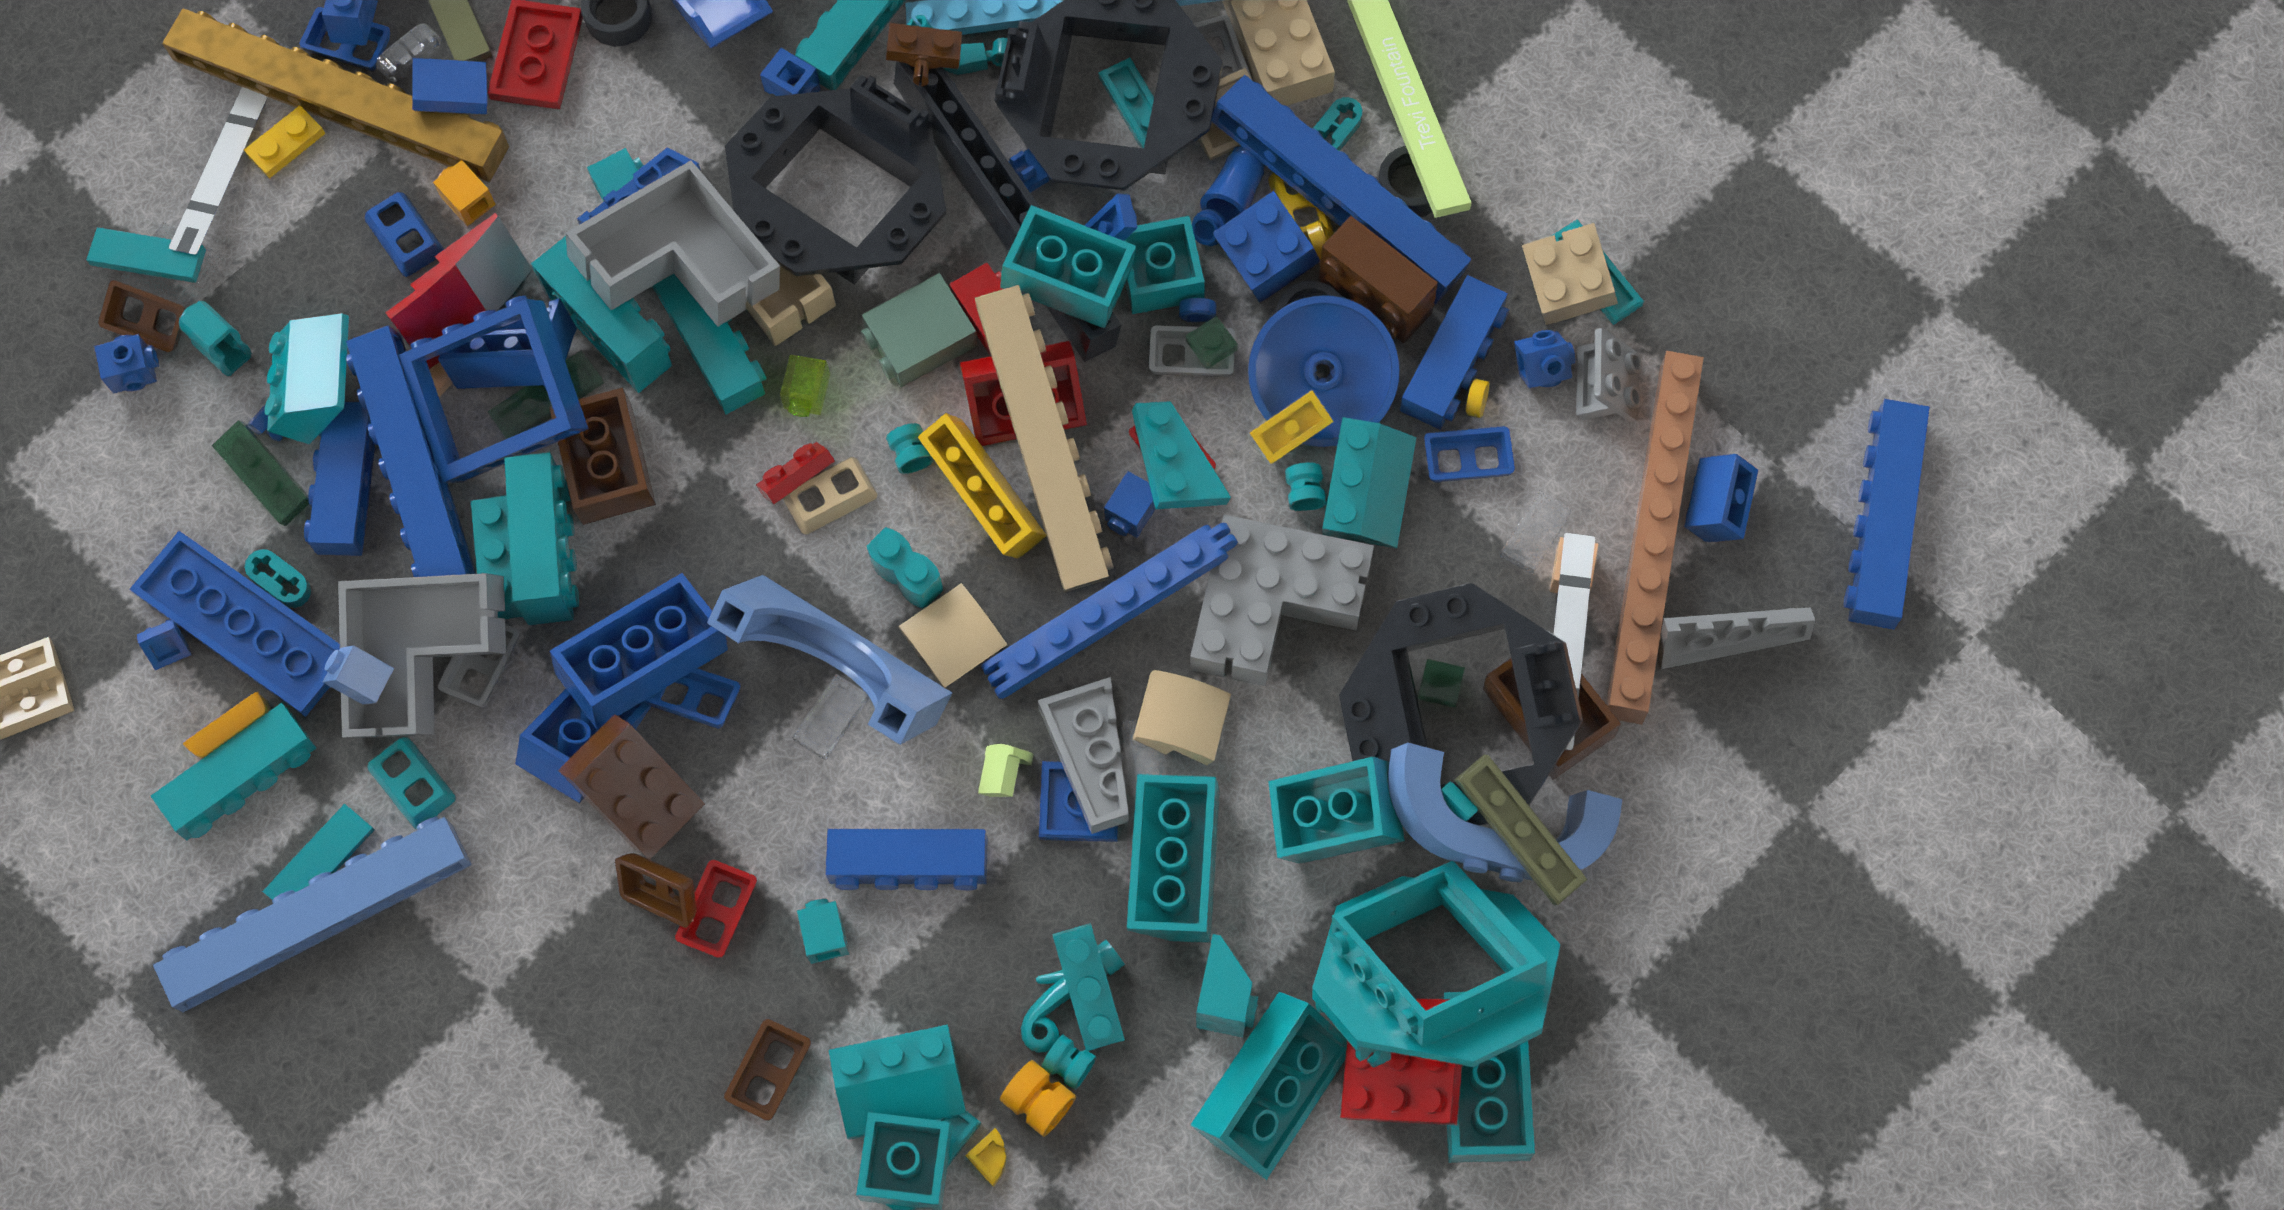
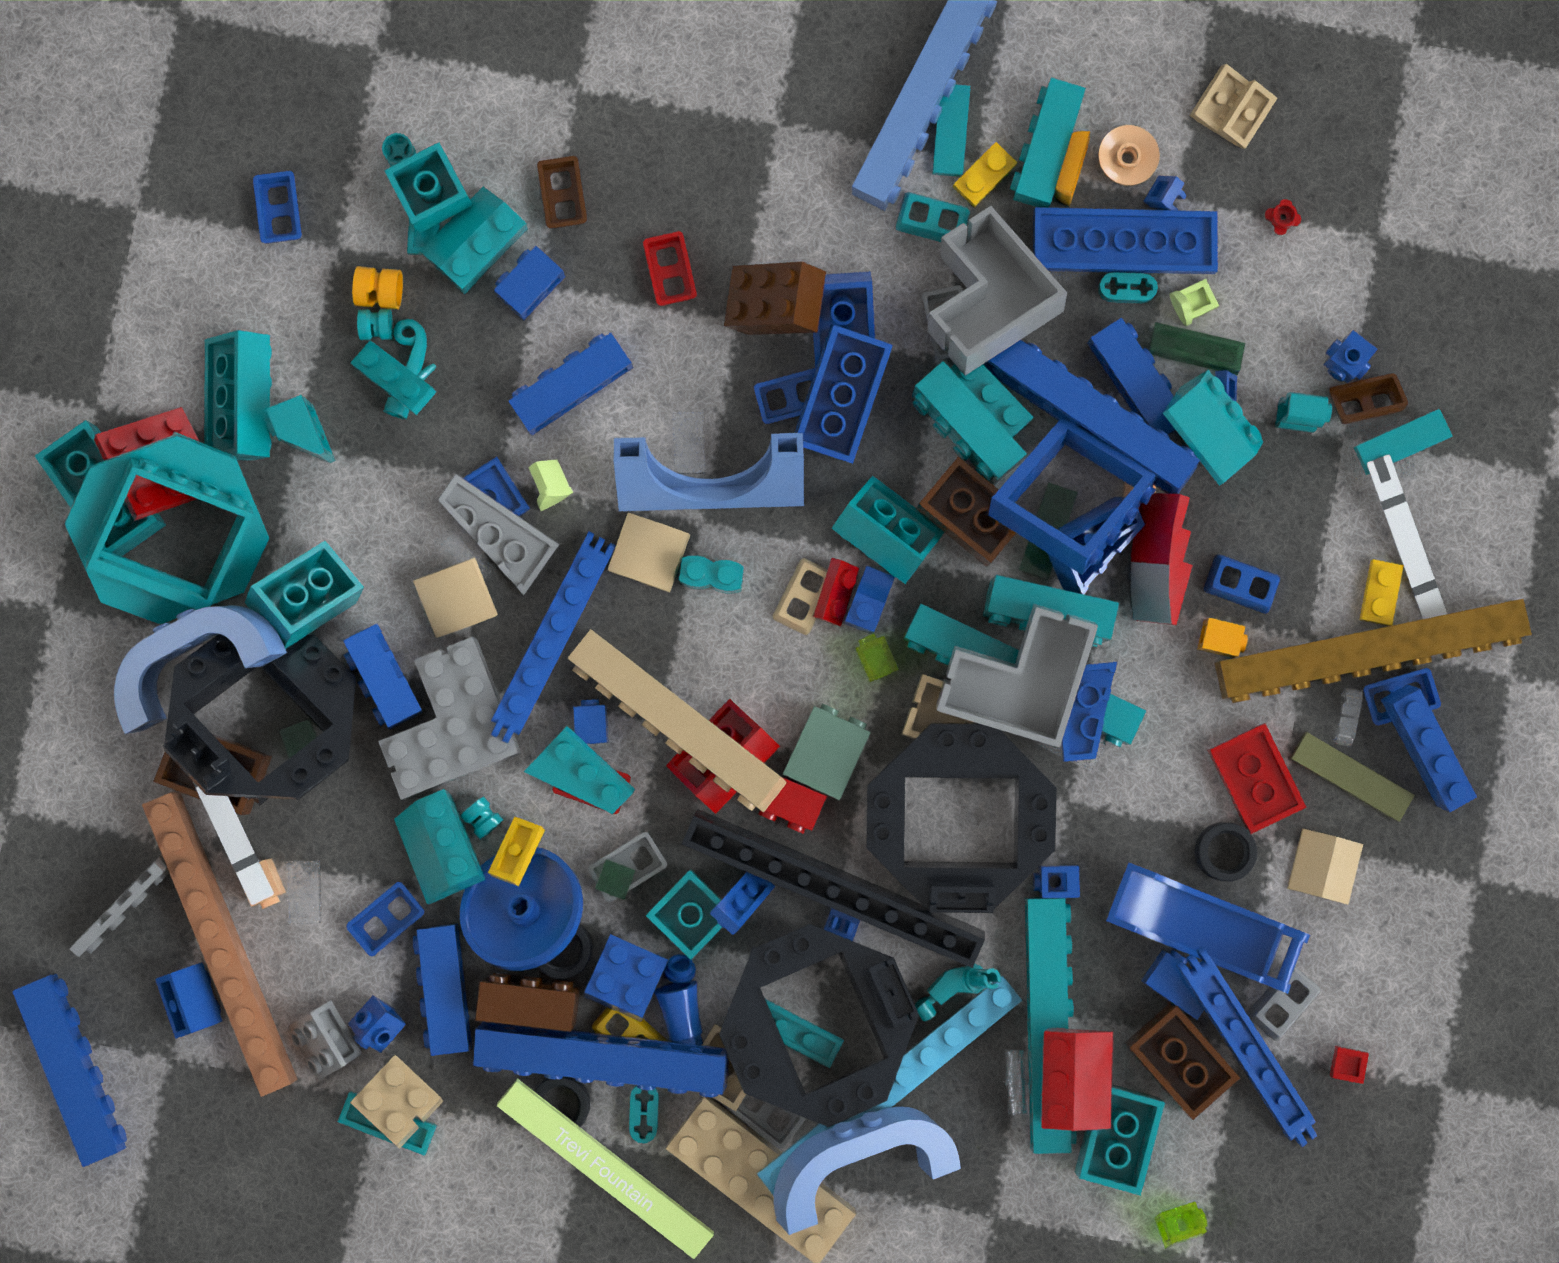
camera: 140 degrees right, 15 degrees up
(62, 541) = (1284, 208): none -> red plate
(154, 693) = (1132, 141): none -> light nougat dish
(226, 523) = (1193, 301): none -> yellowish green tile
(322, 789) = (985, 174): none -> yellow plate
(357, 674) = (1006, 243): medium blue brick -> none
(449, 86) = (1294, 707): blue tile -> none
(658, 898) = (714, 252): reddish brown piece -> none
(697, 498) = (887, 529): none -> teal slope
(769, 443) = (869, 600): none -> blue arch
(822, 931) = (590, 300): teal brick -> none
(873, 995) = (528, 282): none -> blue brick
(909, 449) = (771, 662): teal wheel -> none
(923, 48) = (970, 959): reddish brown plate -> none
(982, 486) = (699, 665): yellow brick -> none
(989, 1157) = (387, 236): yellow tile -> none
(1068, 266) = (740, 852): teal brick -> none
(1174, 857) = (394, 496): teal slope -> none
(1197, 309) = (644, 900): blue tile -> none
(1313, 684) = (381, 677): none -> blue wedge
(1318, 235) = (592, 1010): yellow tile -> none
(1458, 802) = (217, 643): teal tile -> none
(1477, 398) = (406, 965): yellow tile -> none
(1520, 829) = (167, 655): olive tile -> none

